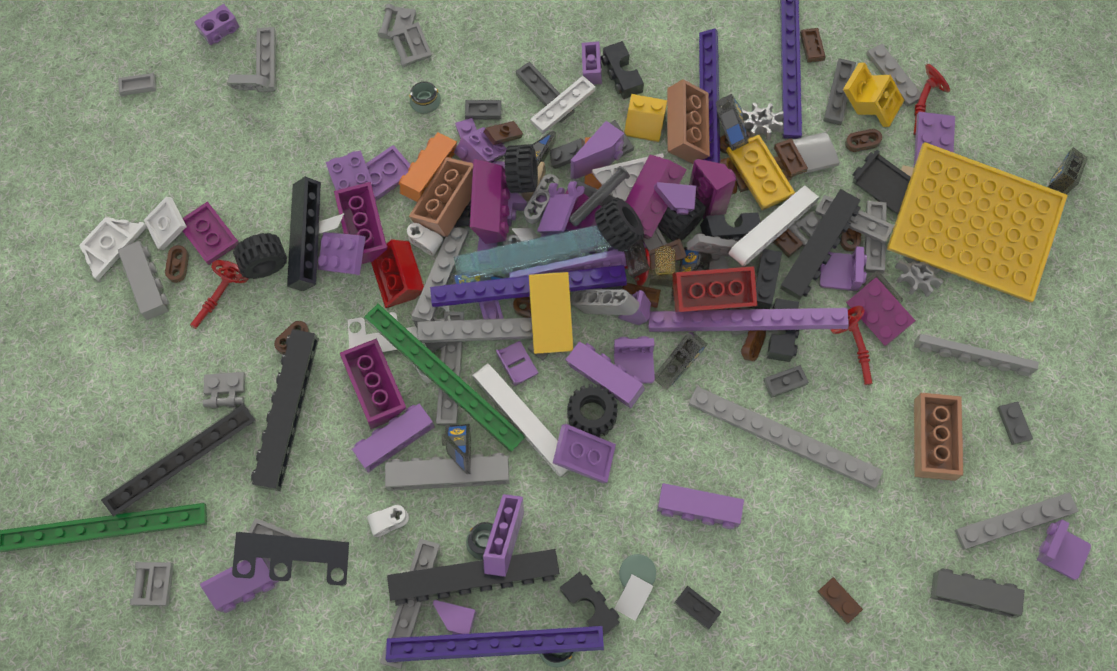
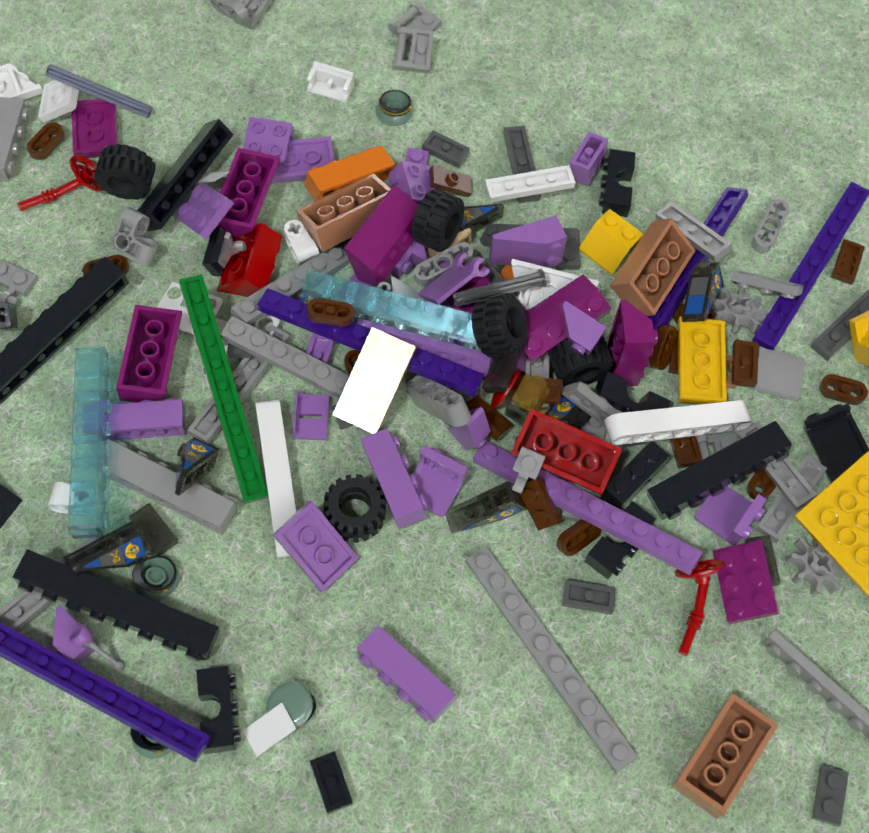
camera: 25 degrees right, 5 degrees down
(194, 203) = (98, 91): none -> axle
(294, 294) = (133, 227): none -> light grey piece
(364, 101) = (330, 81): none -> white hinge
(371, 277) = (220, 250): none -> piece
(377, 473) = (90, 444): none -> clear light blue brick
(444, 541) = (114, 550): none -> clear smoke slope
(460, 508) = (154, 528): none -> clear smoke plate
(467, 612) = (82, 637): none -> hinge
(489, 279) = (330, 312): none -> reddish brown plate
(503, 535) = (171, 579): medium lavender brick -> none
(697, 313) = (528, 465): none -> light grey plate
(703, 79) = (696, 232): none -> light grey plate
(715, 335) = (539, 504): none -> reddish brown plate
(741, 52) = (770, 233): none -> light grey beam
(770, 91) = (767, 284): none -> light grey plate

